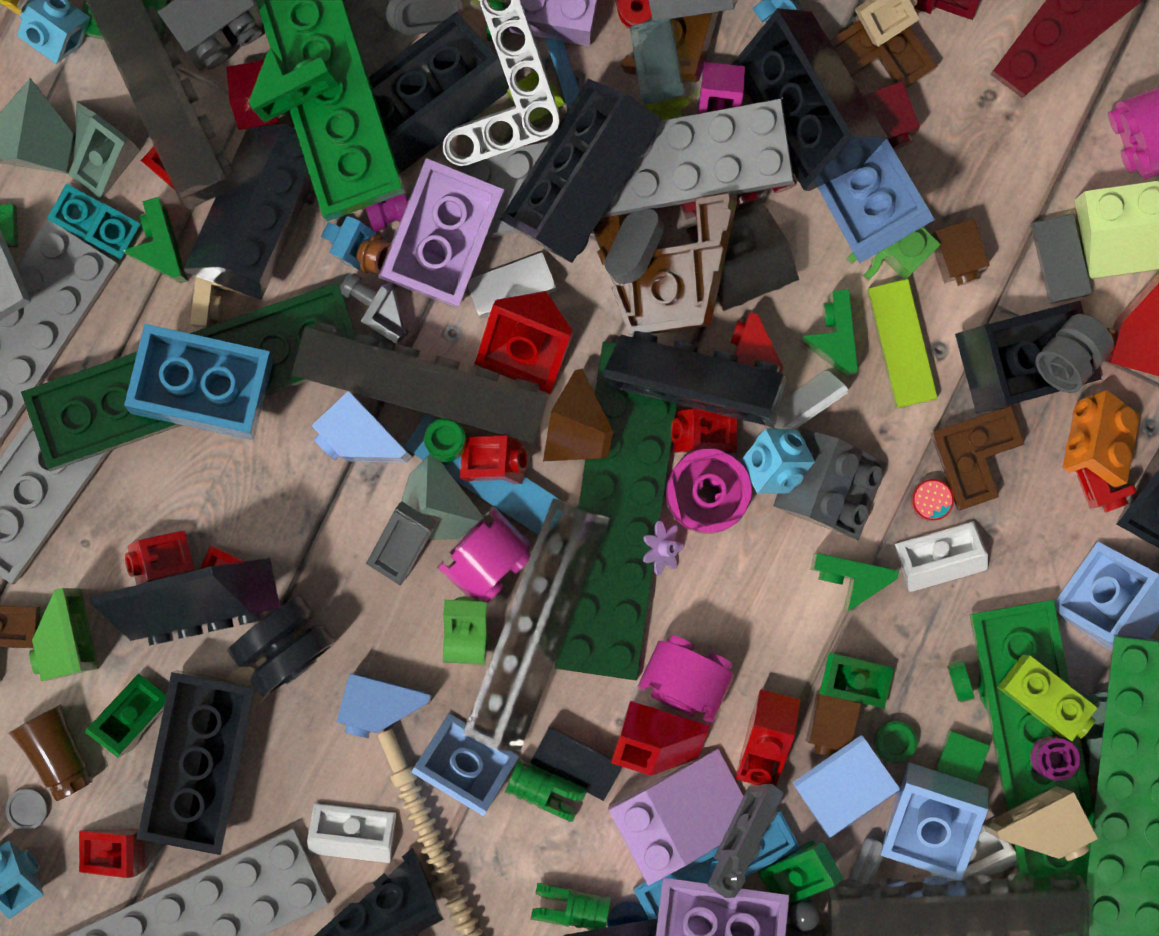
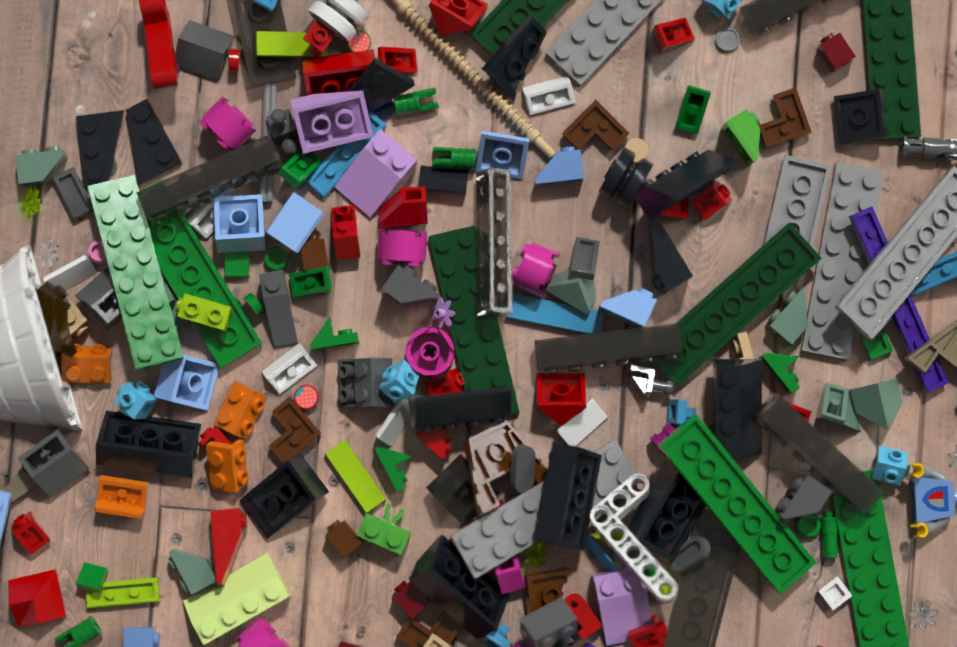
camera: 150 degrees right, 0 degrees up
(53, 752) = (725, 74): reddish brown plant -> none
(93, 221) = (824, 368): teal slope -> none
(110, 316) = (792, 319): none -> sand green slope
(196, 762) = (645, 99): black slope -> none
(199, 382) = (726, 299): dark azure brick -> none
(241, 82) = (765, 470): dark red brick -> none
(272, 485) = (666, 262): none -> black slope
(282, 91) = (747, 473): green slope -> none
(293, 759) = (597, 122): none -> reddish brown plate
(372, 254) = (662, 410): dark orange plate -> none
(441, 233) = (630, 433): lavender slope -> none
(445, 440) = (582, 322): green tile -> none
(465, 631) = (530, 224): bright green plate -> none
(494, 459) = (552, 323): red bracket -> none
(577, 424) = (515, 360): reddish brown slope -> none
(656, 61) = (551, 576): clear light blue tile -> none
(707, 607) = (407, 289): none -> dark grey slope
(743, 838) = (339, 174): dark grey hinge -> none
(876, 203) = (400, 541): medium blue plate -> none
(922, 660) = (278, 307): none -> dark grey slope
(1047, 519) = (240, 410): none -> orange bracket
(1047, 754) = (191, 284): magenta wheel -> none
(1047, 824) = (182, 242): tan slope -> none
(1061, 258) = (286, 557): dark grey tile -> none
(1074, 353) = (261, 504): dark grey wheel -> none

